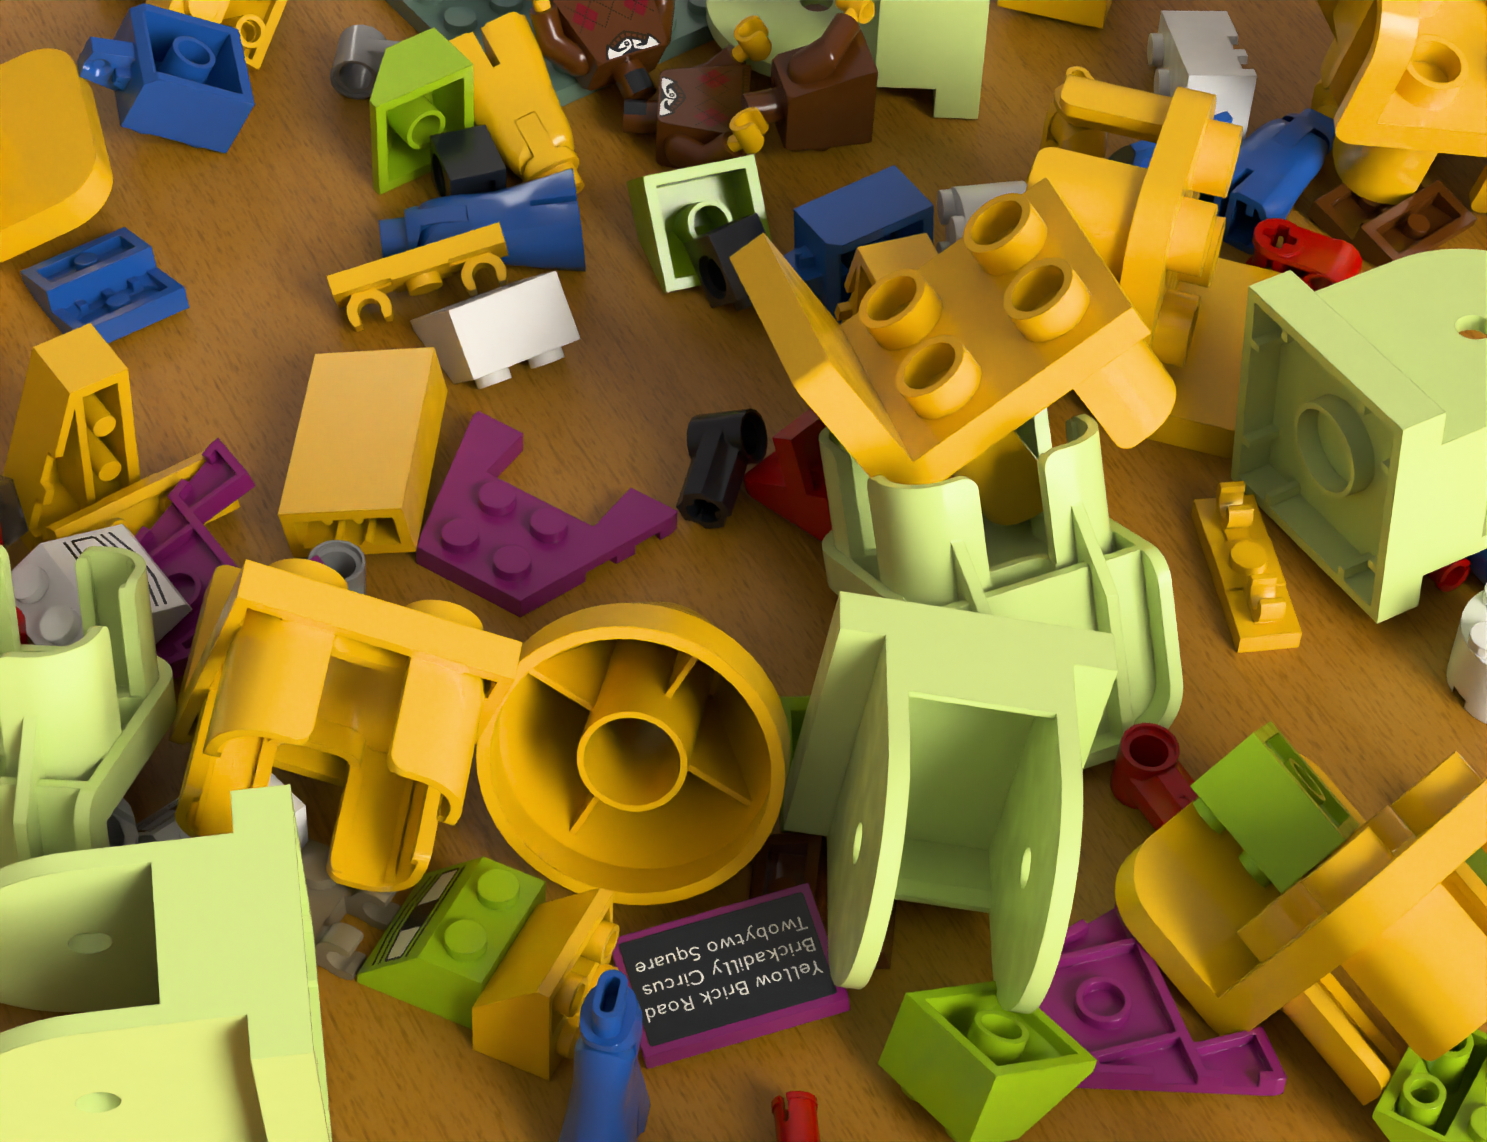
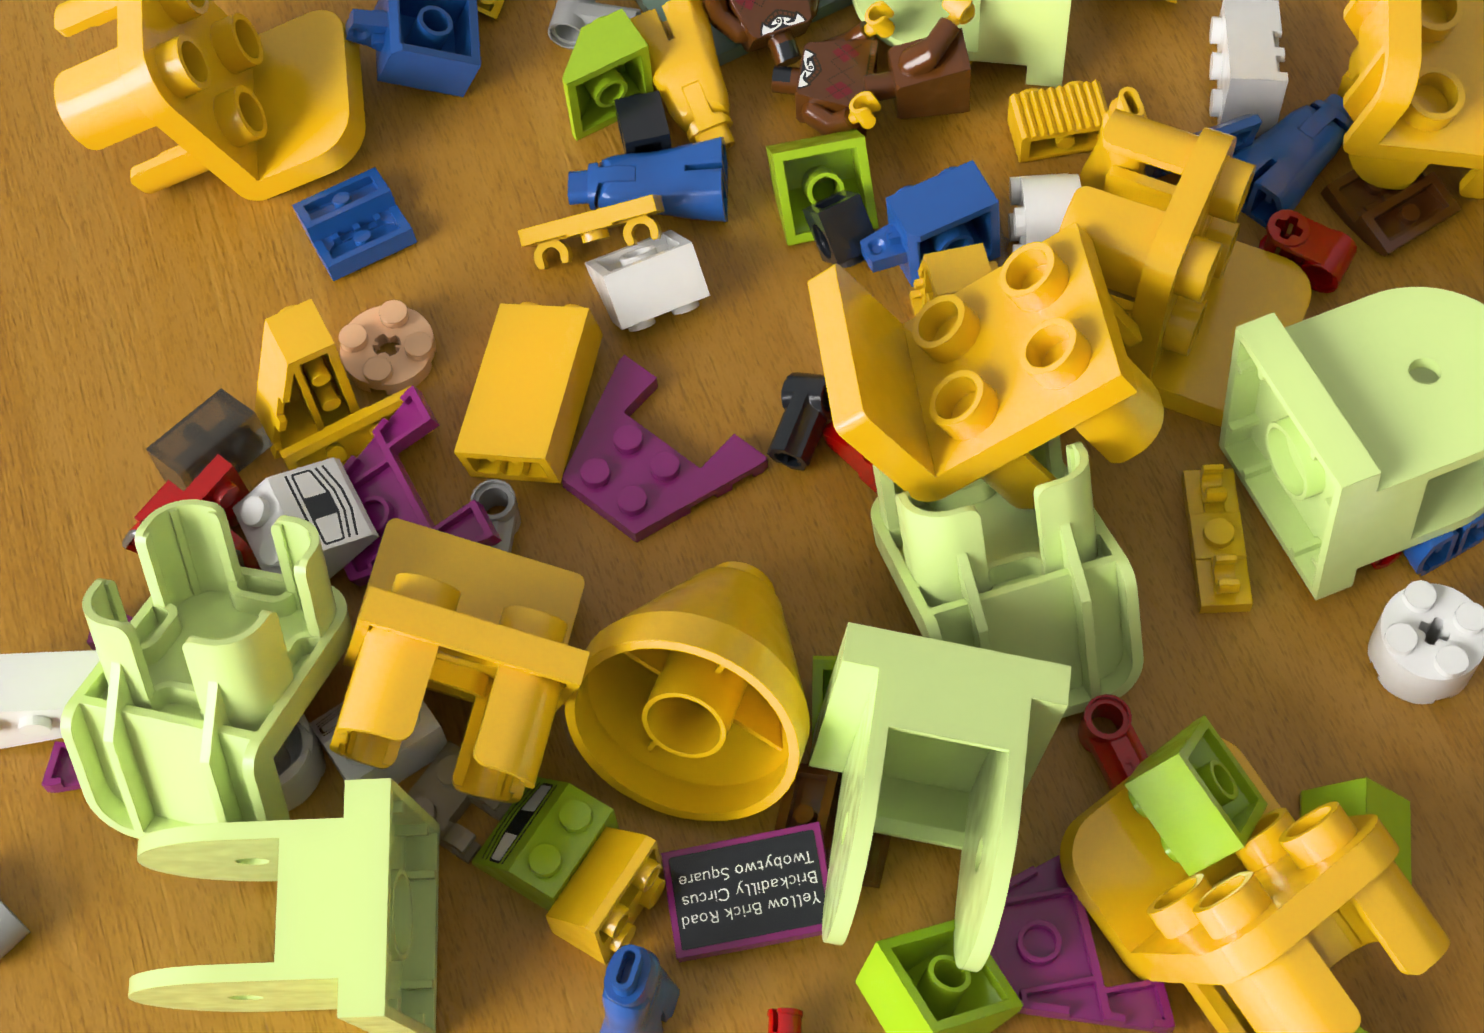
camera: 15 degrees right, 15 degrees up
(179, 396) = (384, 325): none -> light nougat plate
(979, 144) = (1056, 120): none -> yellow brick

